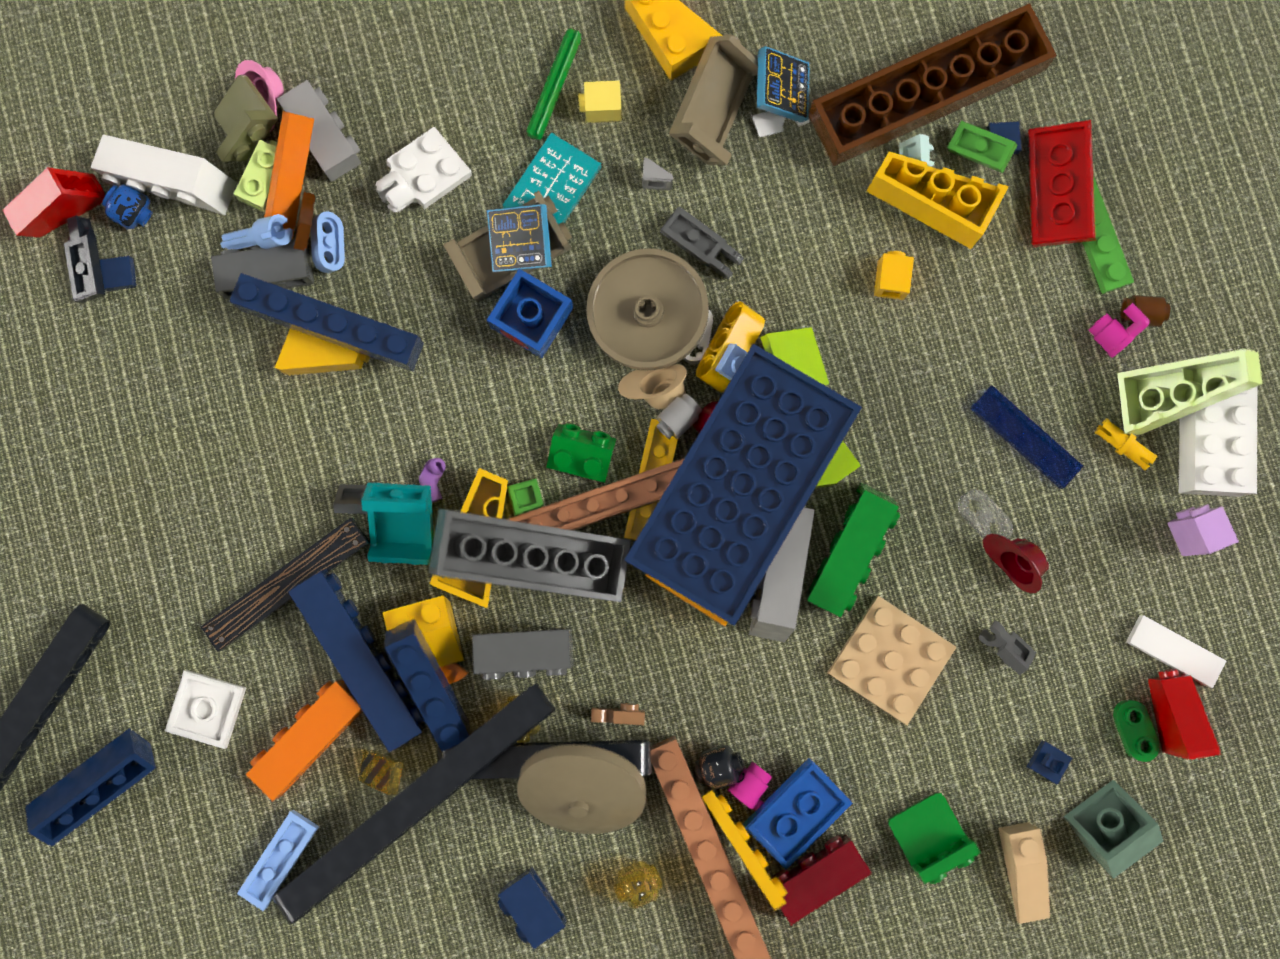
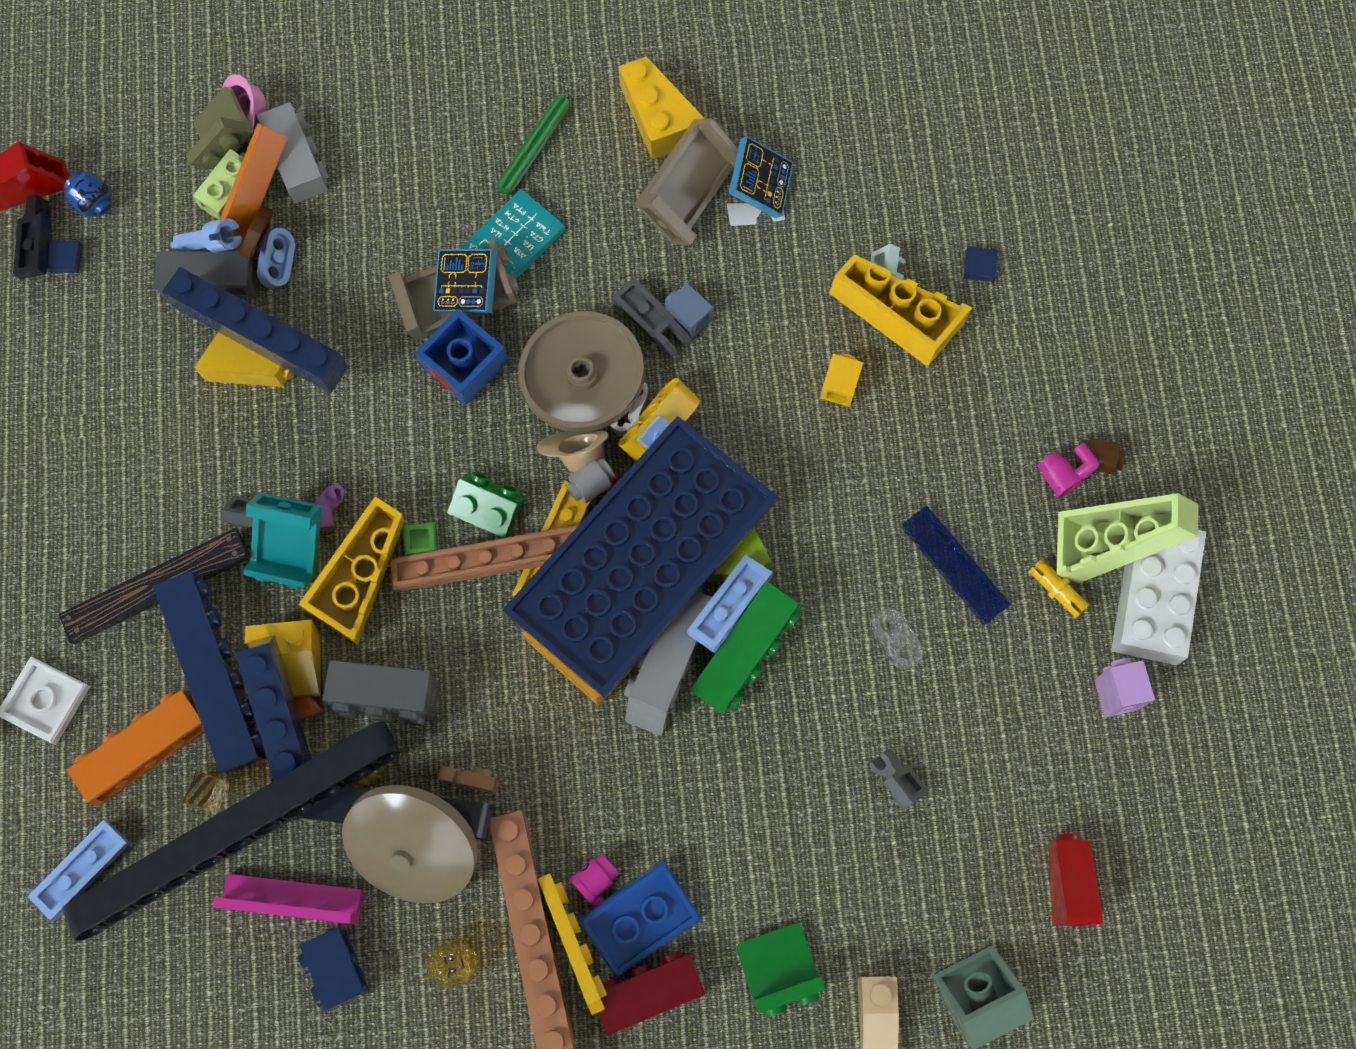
camera: 15 degrees right, 10 degrees down
(163, 173) = (131, 168): white wedge -> none
(422, 172) = (384, 207): white plate -> none
(477, 853) = (290, 899): none -> dark pink fence
(528, 556) = (406, 591): dark grey brick -> none
(601, 101) = (577, 166): light yellow brick -> none
(655, 176) = (616, 246): light grey slope -> none
(719, 767) = (564, 852): black head -> none
(737, 229) = (689, 309): none -> sand blue brick
(799, 350) = (729, 435): lime tile -> none
(832, 514) = (729, 603): none -> light blue plate
(891, 660) = (771, 773): tan plate -> none
(931, 84) = (911, 199): reddish brown brick -> none
(982, 146) = (954, 267): bright green plate -> none
(1019, 560) = (923, 687): dark red piece -> none
(1049, 762) = (924, 913): dark blue tile -> none
(1062, 184) = (1031, 316): red tile -> none
(1106, 253) = (1062, 372): bright green plate -> none
(1136, 732) = (1025, 895): green plate -> none
(1176, 651) = (1082, 817): white tile -> none

